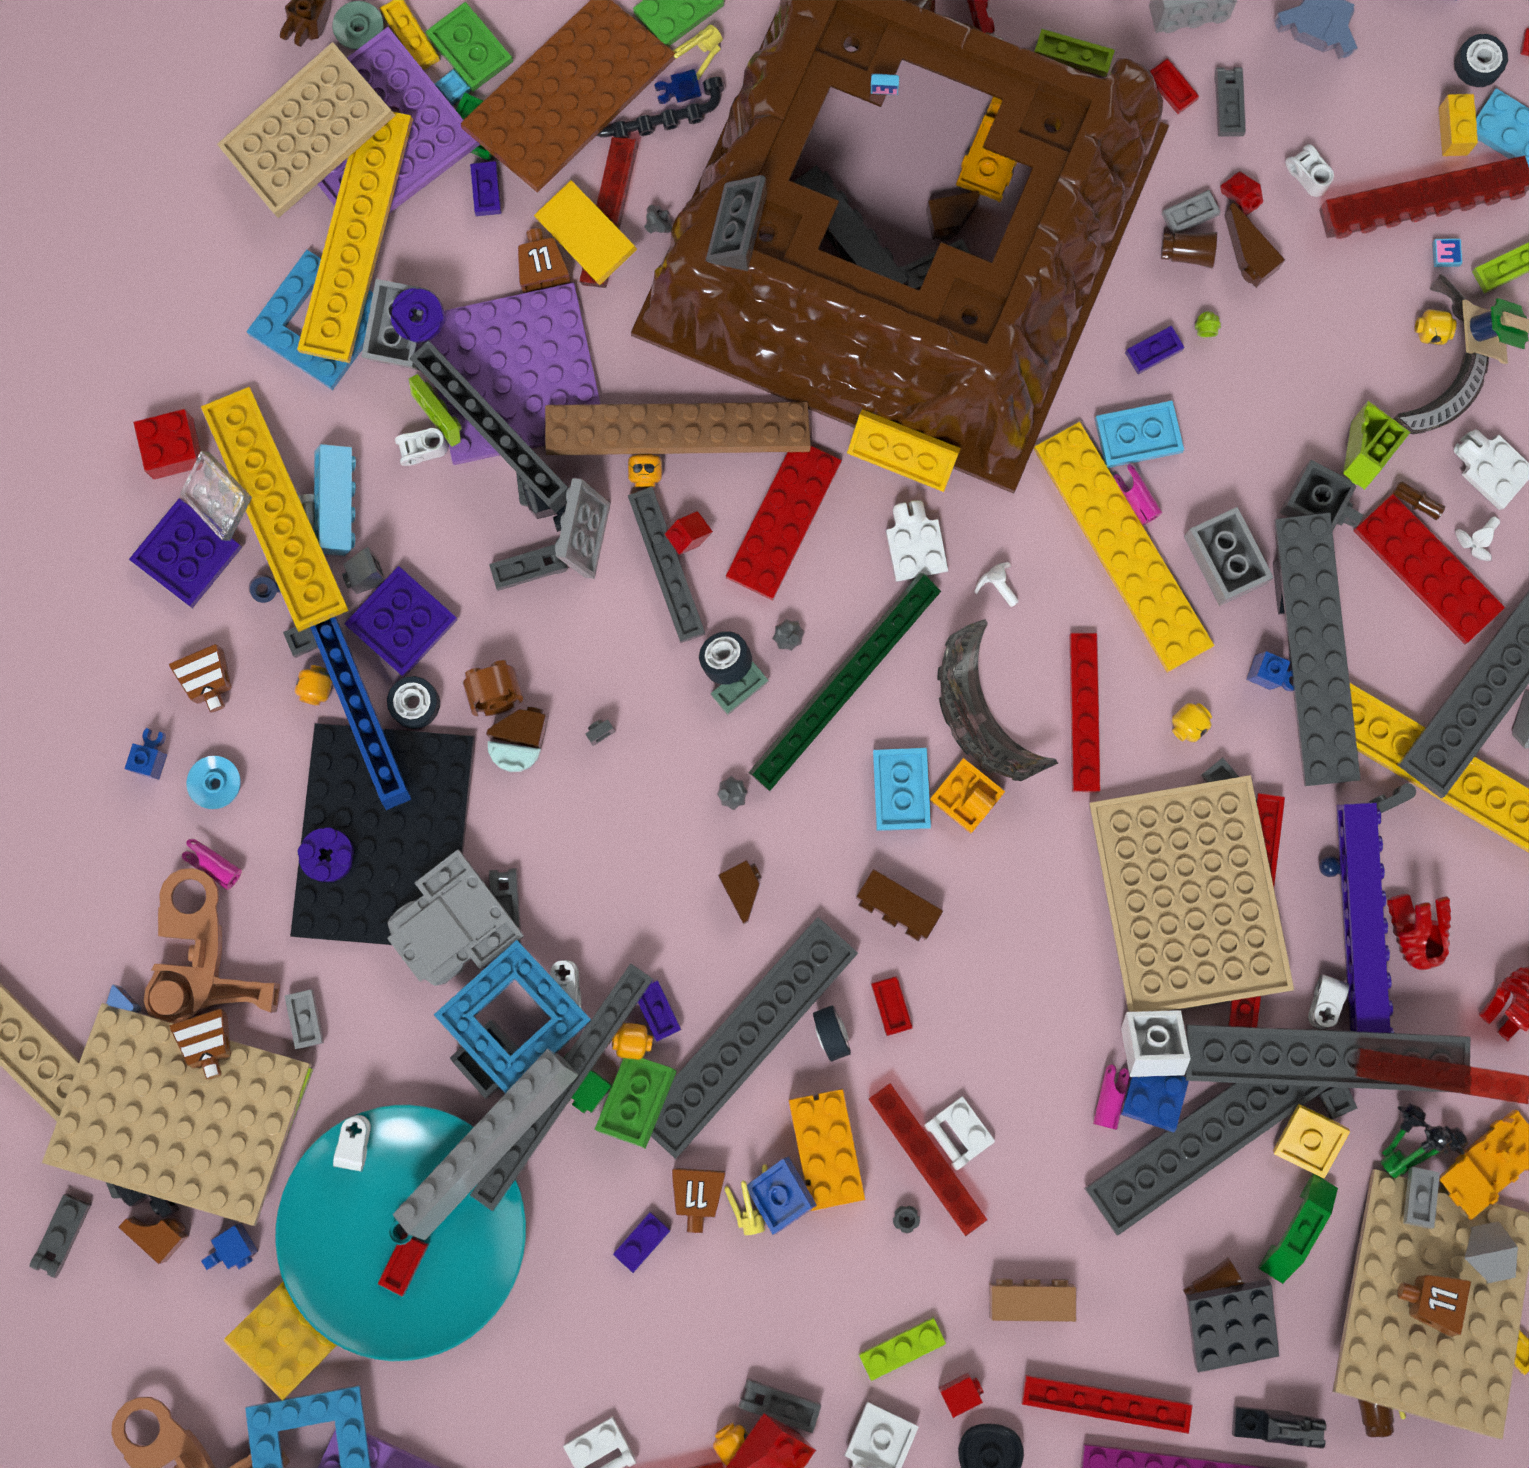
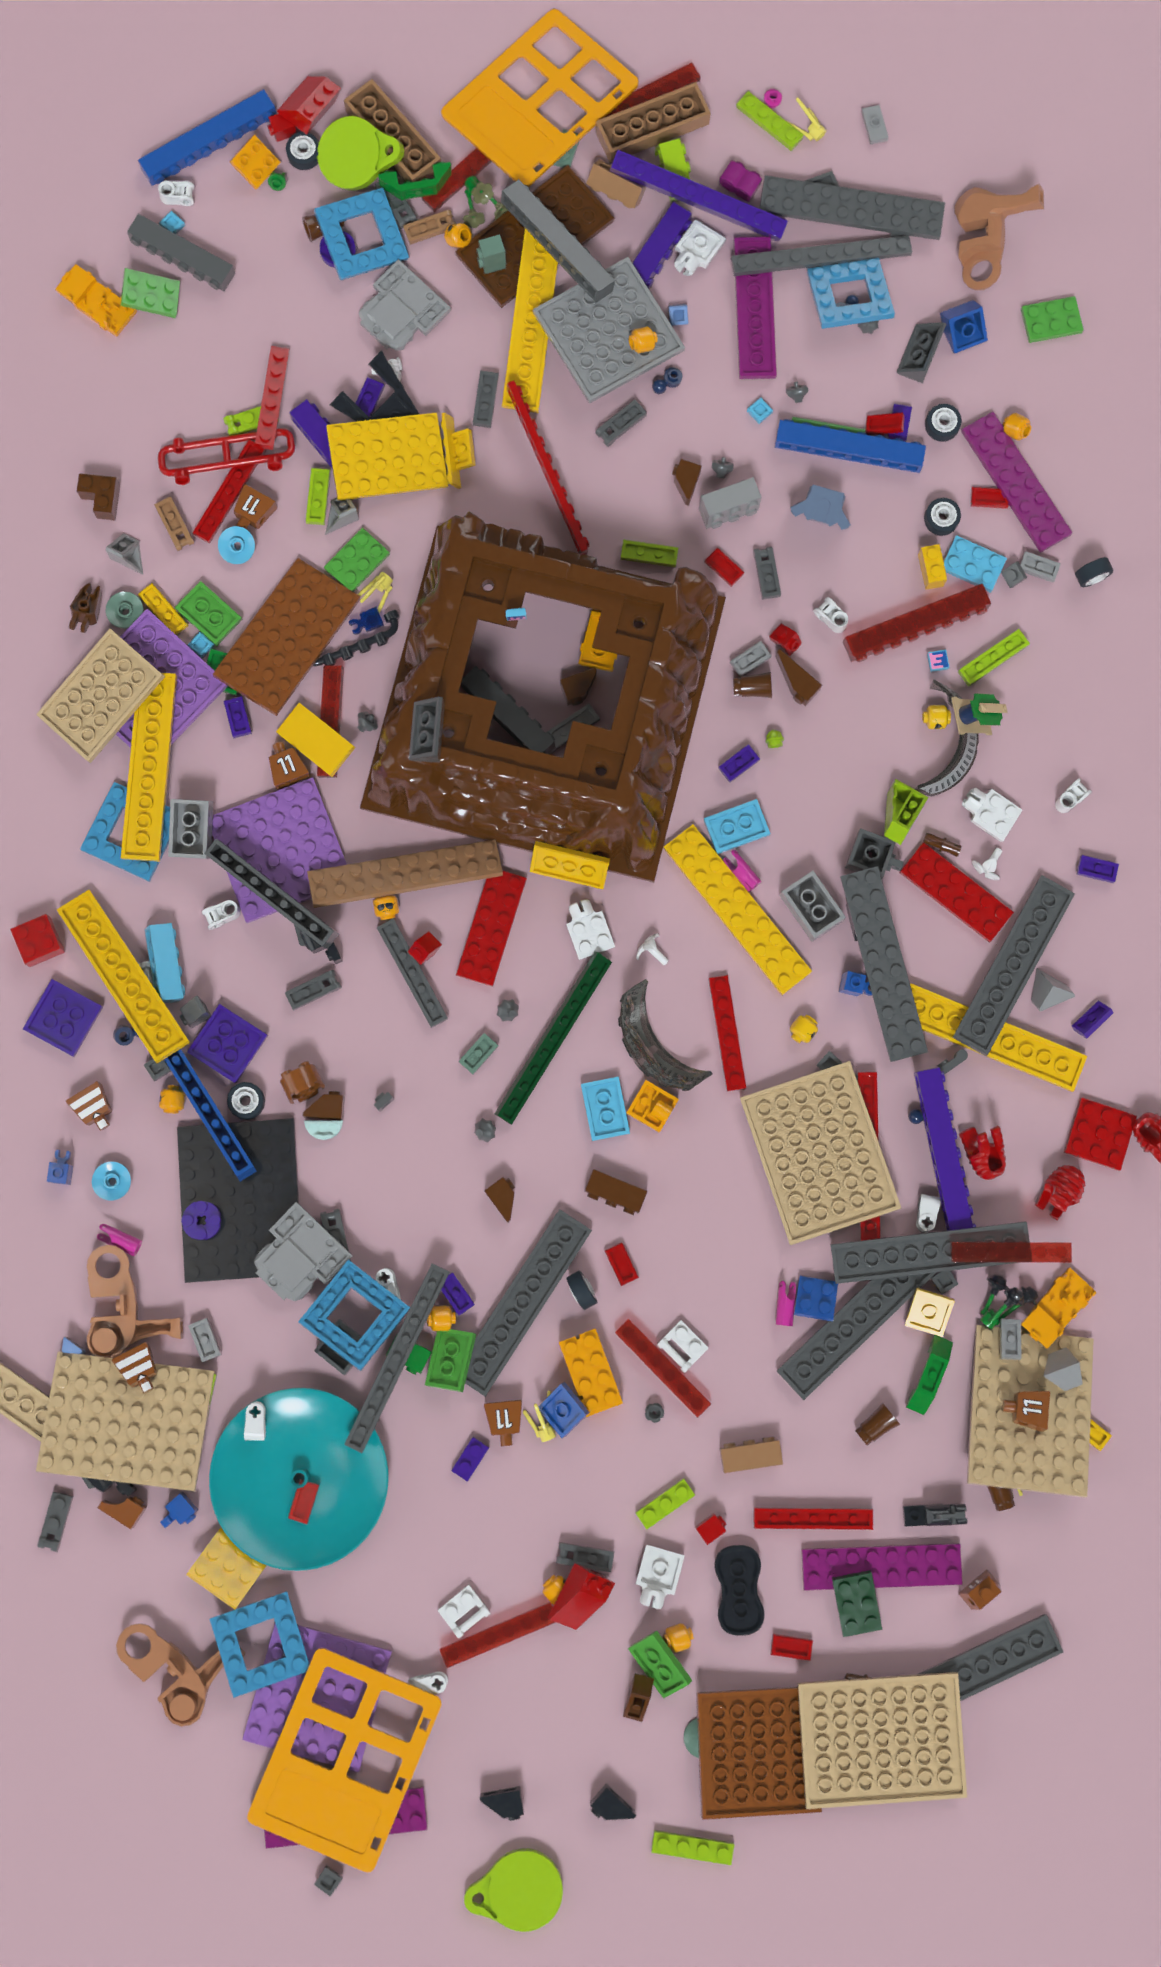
camera: 15 degrees left, 0 degrees up
(215, 495) = (79, 973): clear plate -> none
(403, 313) = (206, 810): dark purple plate -> none
(435, 410) = (228, 886): lime plate -> none
(485, 1145) = (349, 1407): light grey brick -> none
(582, 528) = (348, 957): light grey plate -> none
(729, 669) = (469, 1042): wheel -> none
(1155, 1043) = (810, 1261): white brick -> none
(1232, 1325) = (892, 1449): black plate -> none

